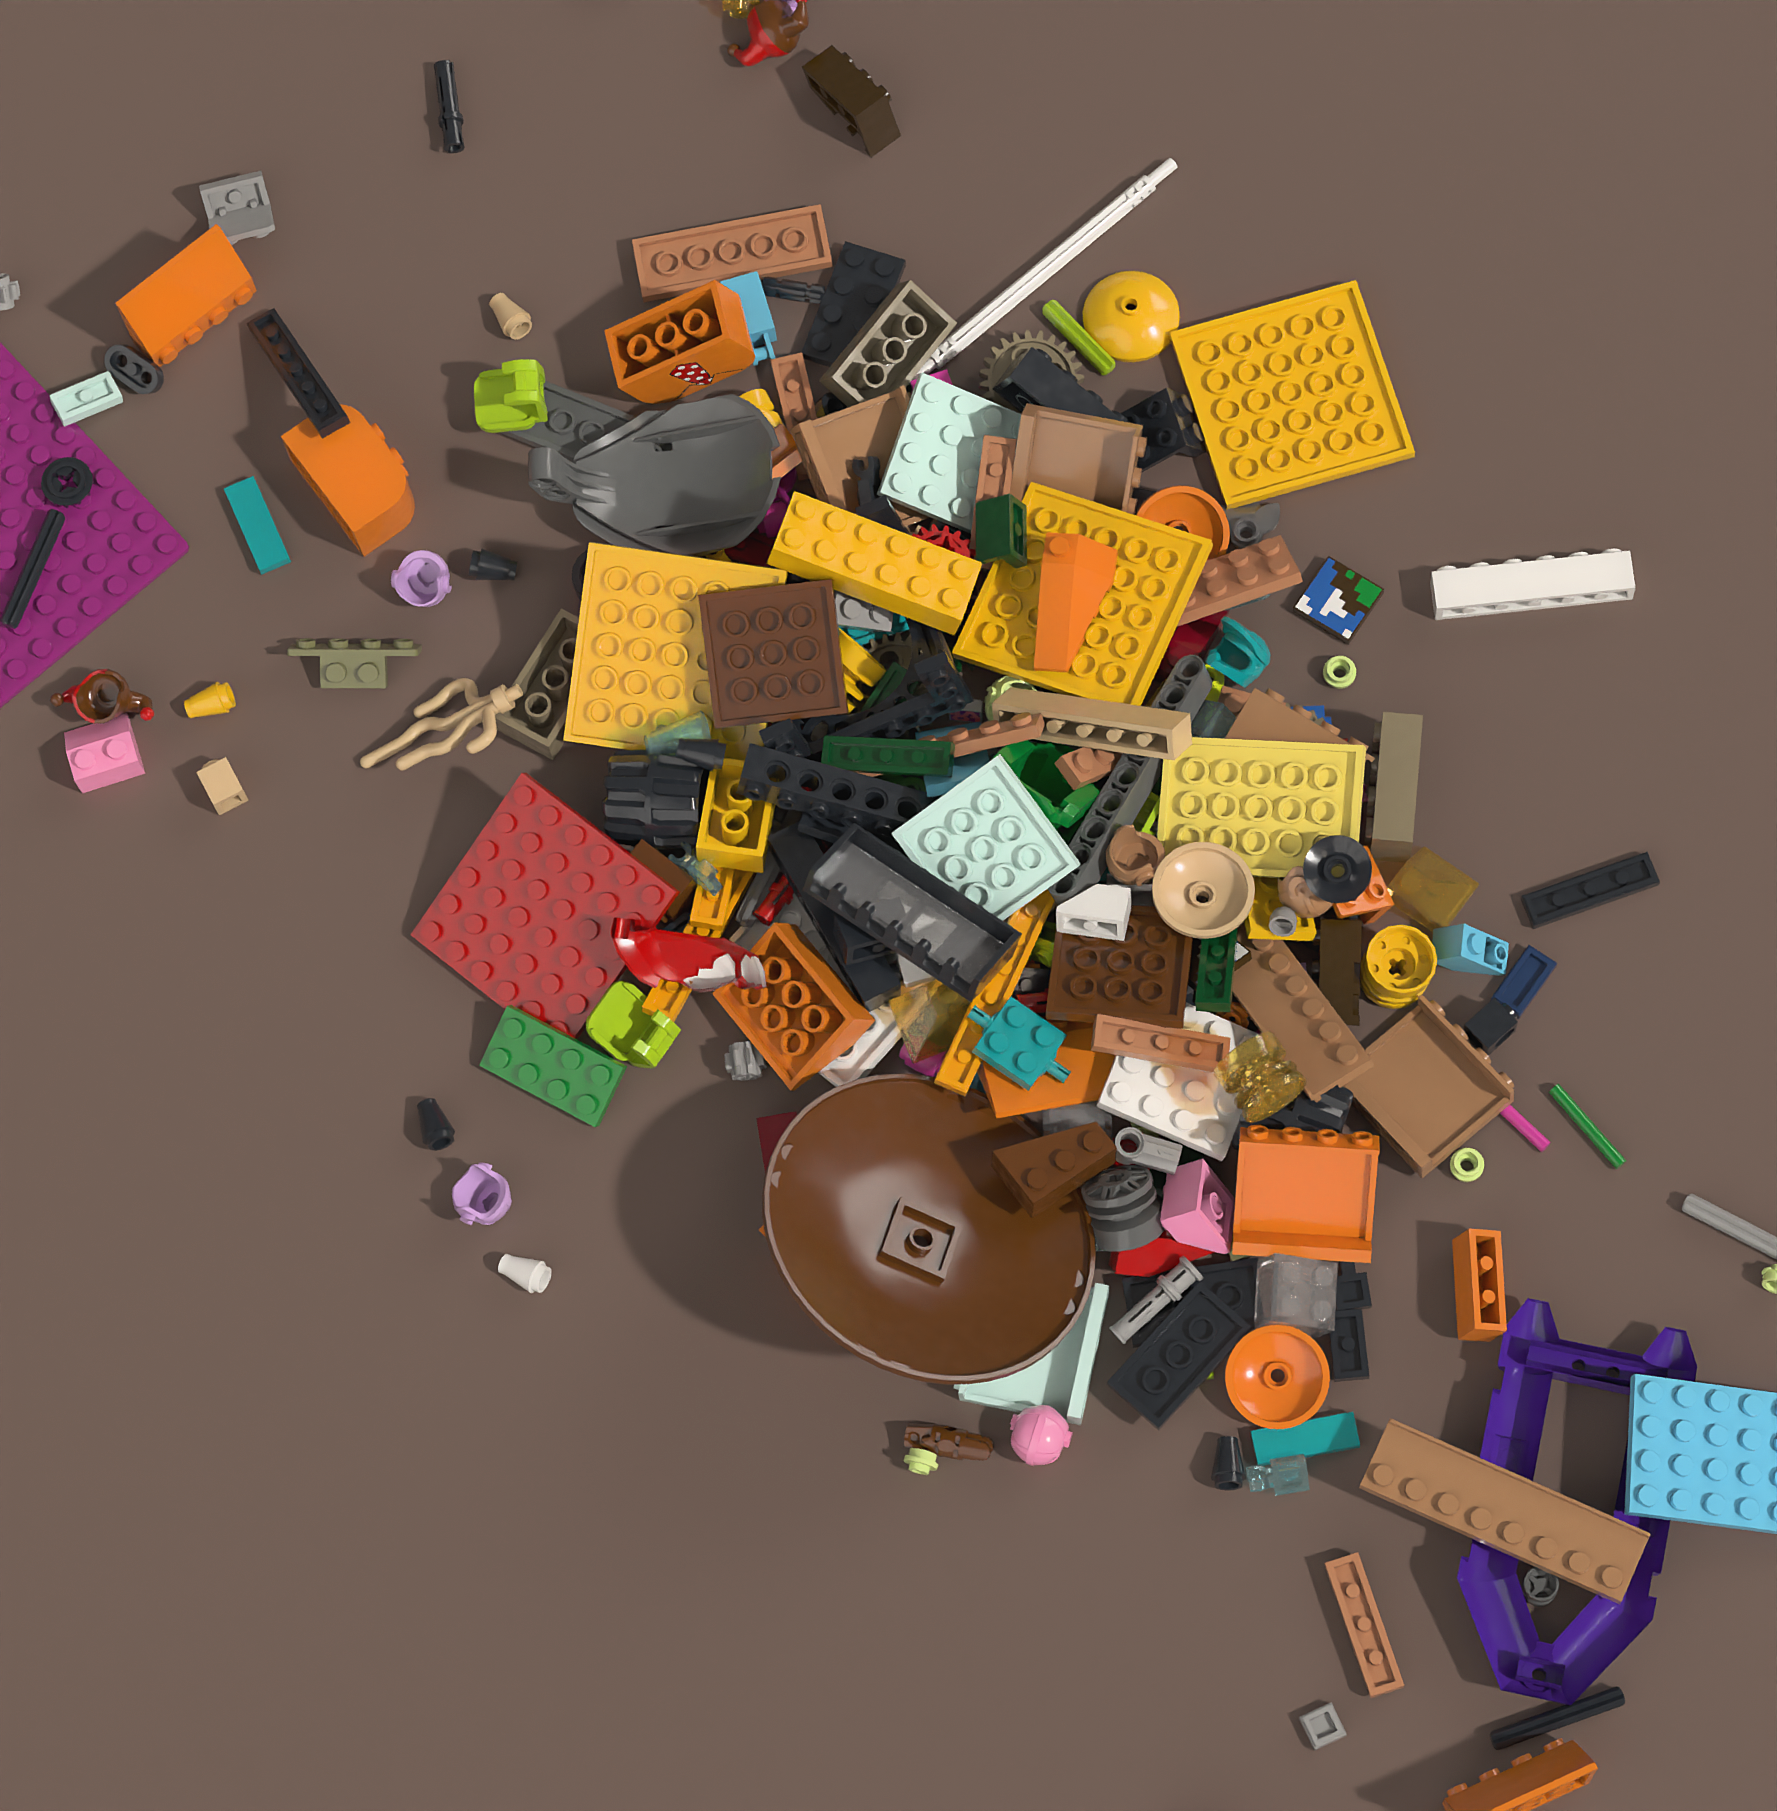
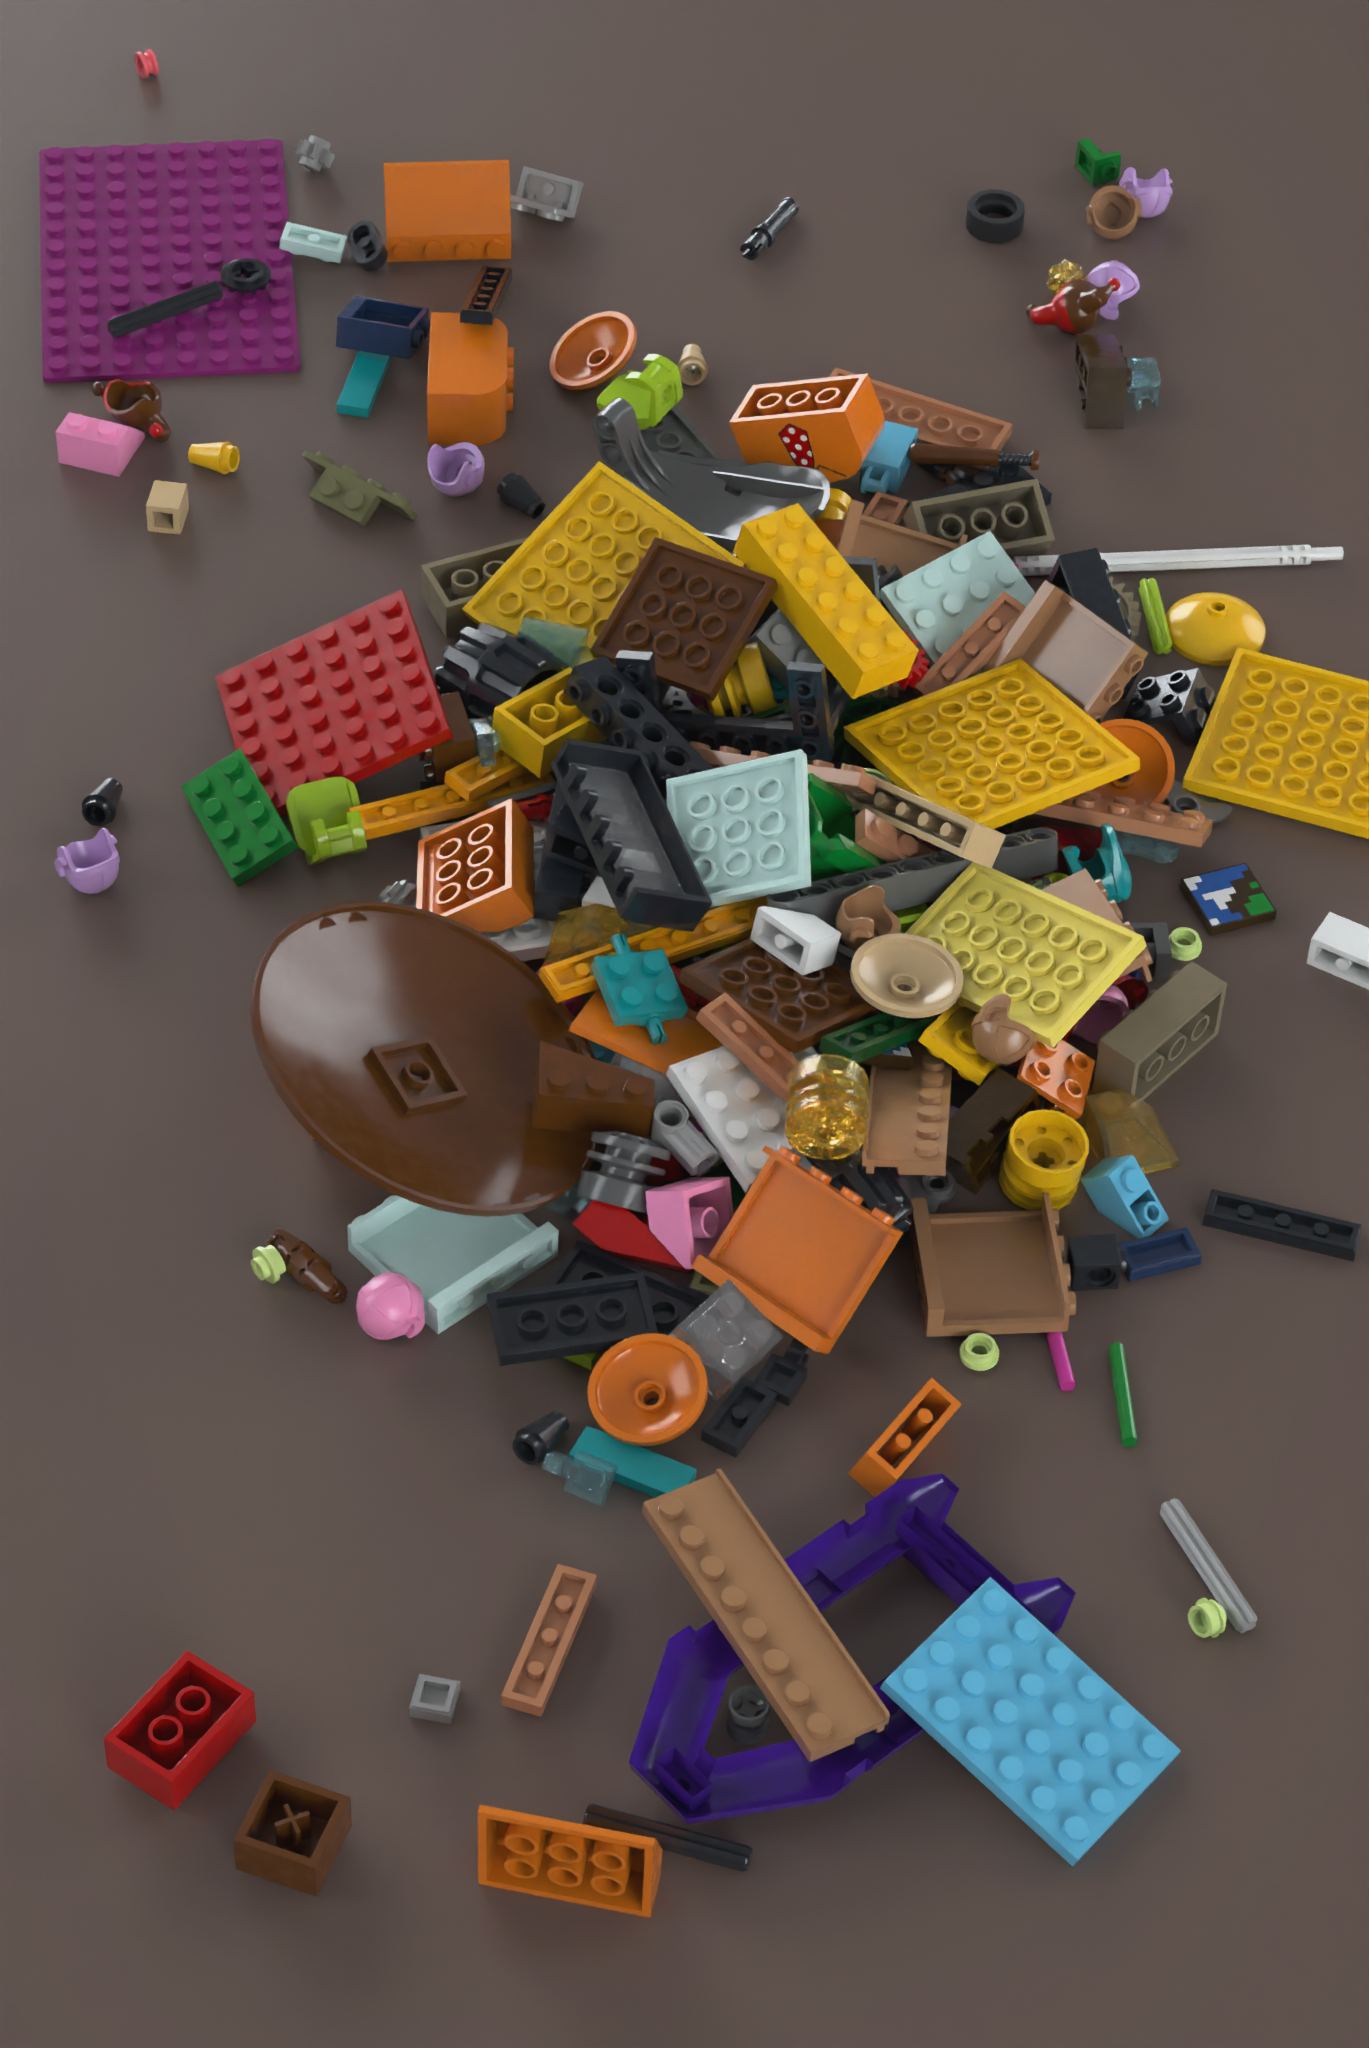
camera: 25 degrees right, 25 degrees down
(224, 443) = (382, 327): none -> dark blue window
(412, 361) = (593, 351): none -> orange dish
(479, 710) = (436, 551): tan plant -> none
(526, 1272) = (74, 939): white cone -> none
(685, 958) = (407, 785): red animal -> none
(702, 752) = (561, 649): black cone -> none
(809, 275) = (957, 455): none -> reddish brown piece
(884, 72) = (1144, 380): none -> clear light blue plate
(889, 756) = (716, 738): dark green plate -> none
(1001, 530) = (964, 666): dark green panel -> none
(1072, 586) = (985, 720): orange wedge -> none
(1168, 1289) = (606, 1263): light grey pin -> none
(1283, 921) = (958, 1045): light grey hinge -> none
(1326, 690) = (1158, 945): none -> dark grey bracket
(1334, 852) = (1040, 1012): black dish -> none

